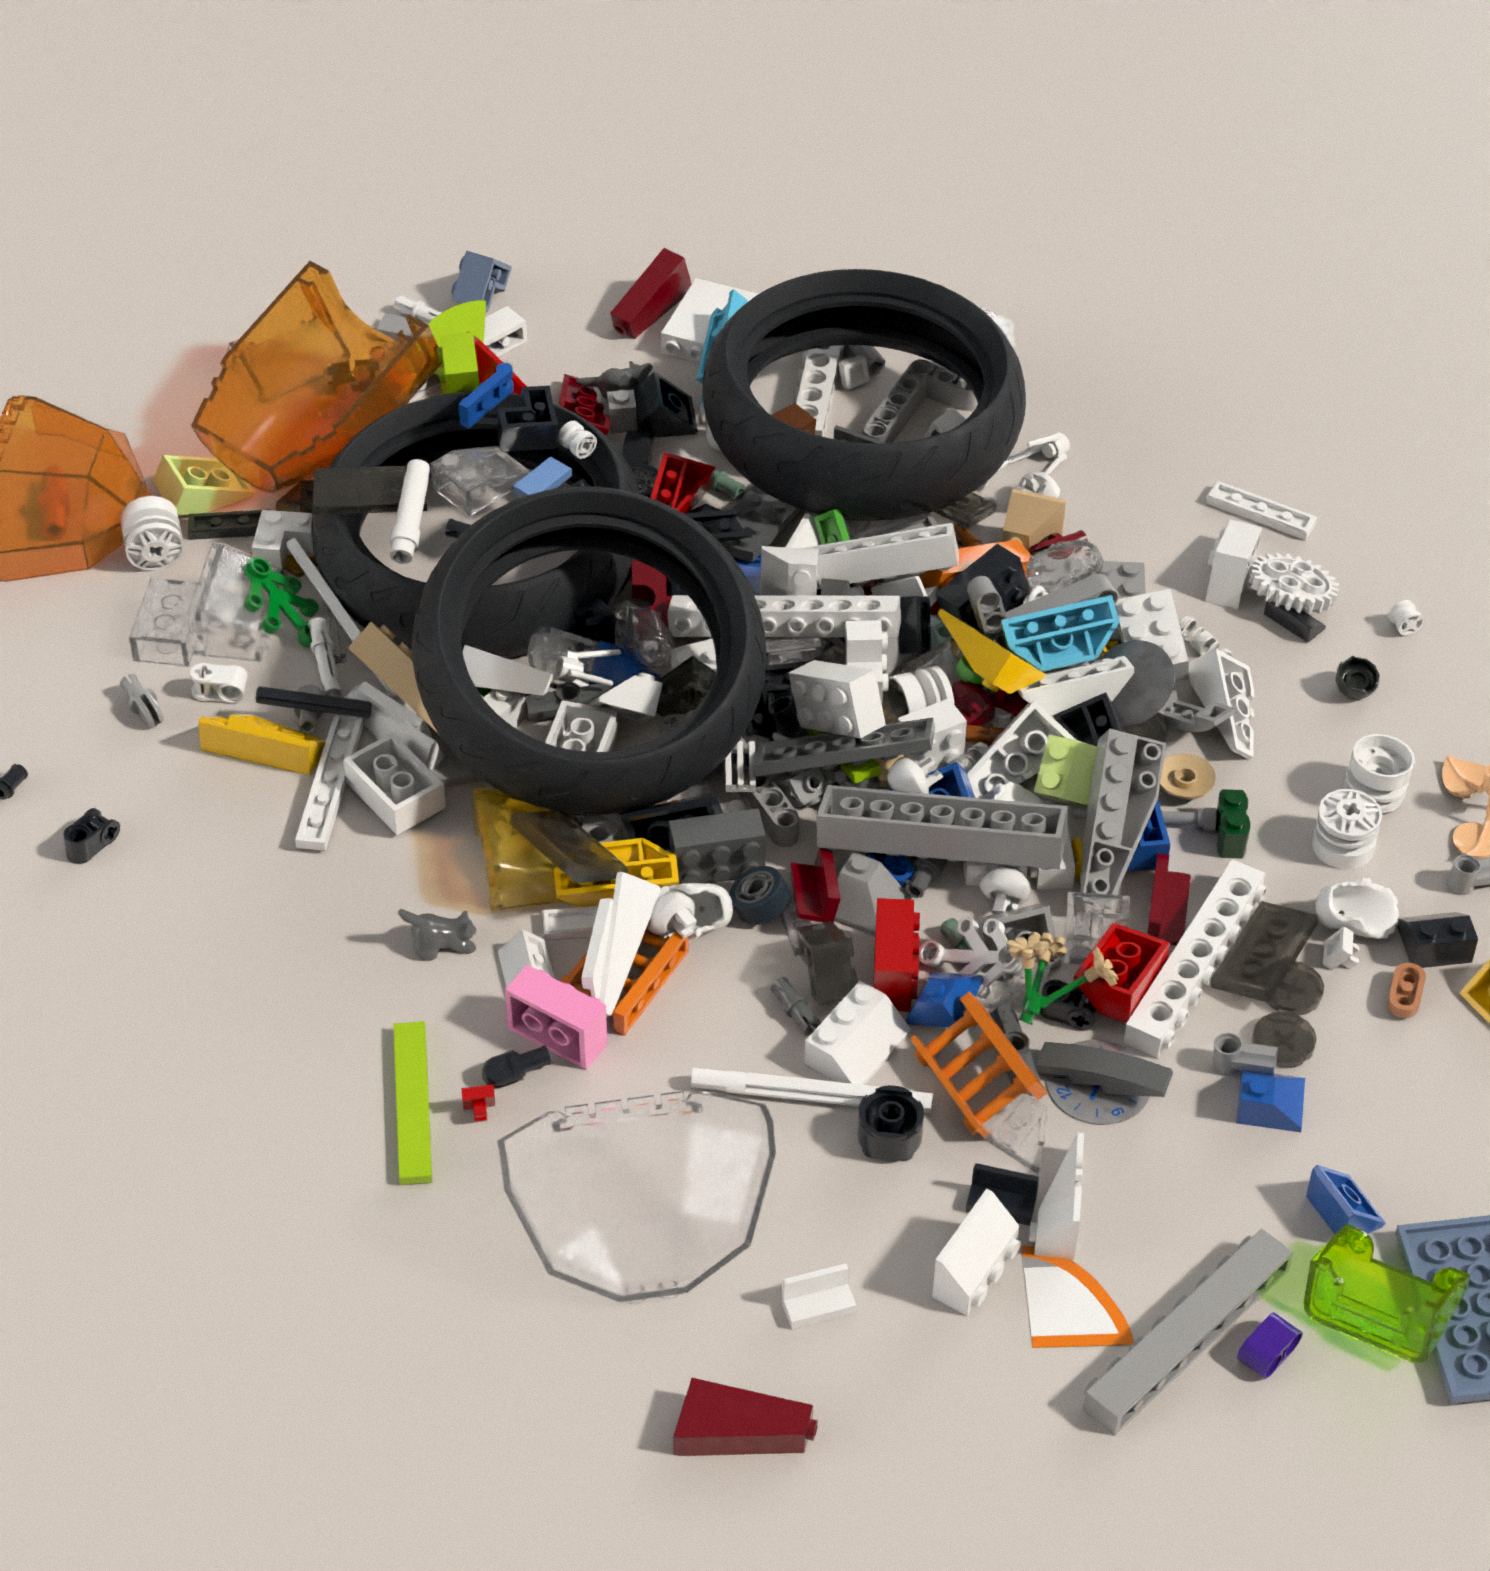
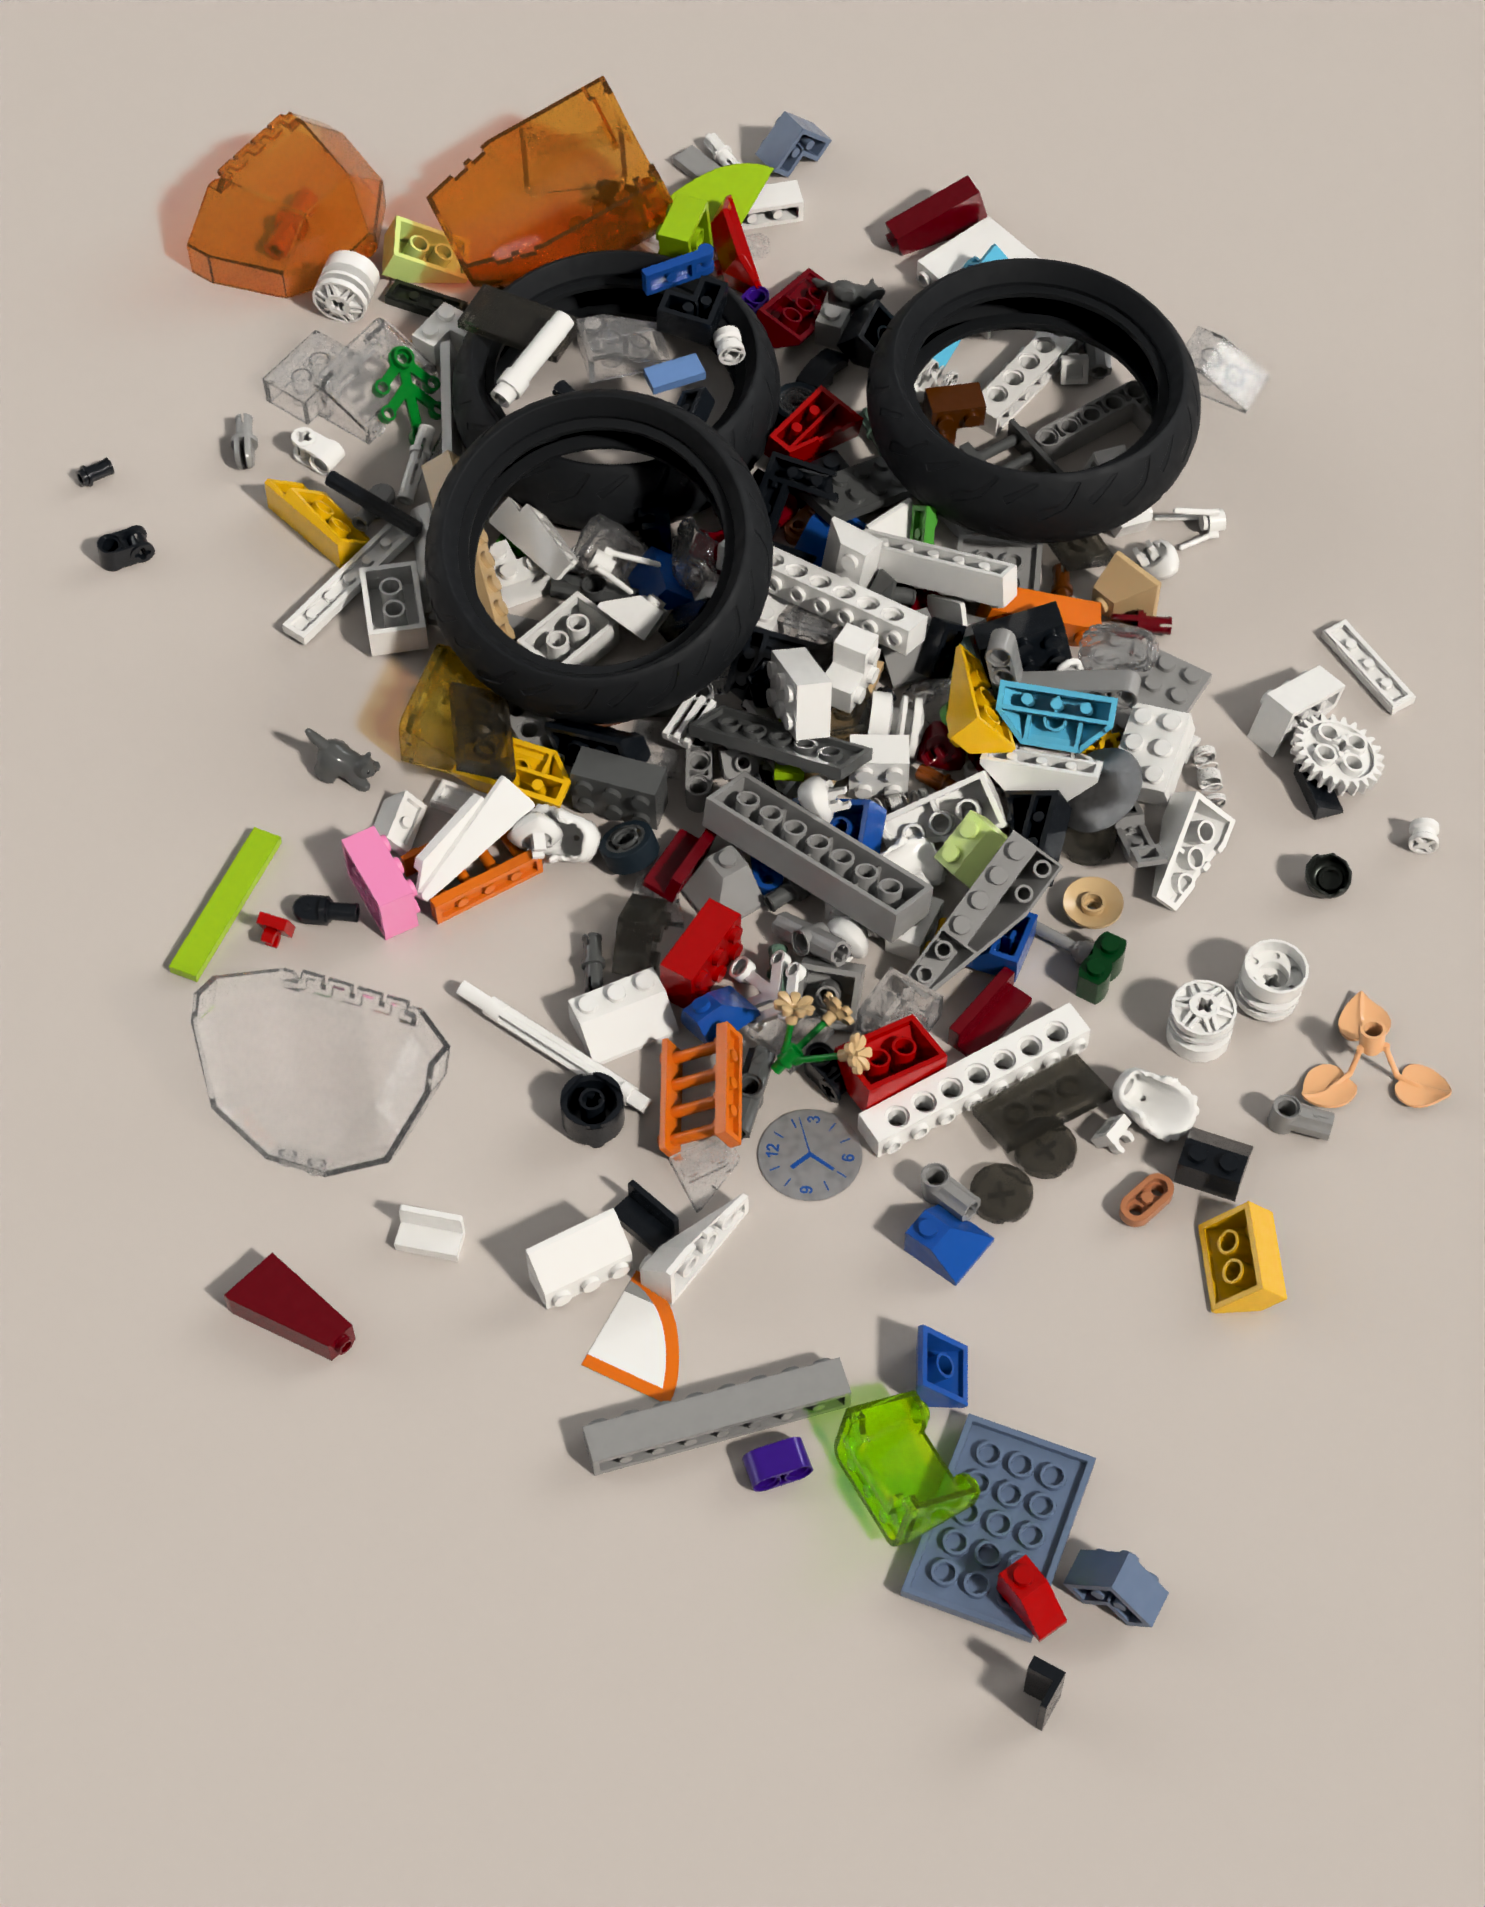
camera: 30 degrees right, 10 degrees up
(964, 900) = (811, 939): none -> light grey piece
(1112, 1070) = (815, 1146): dark grey slope -> none

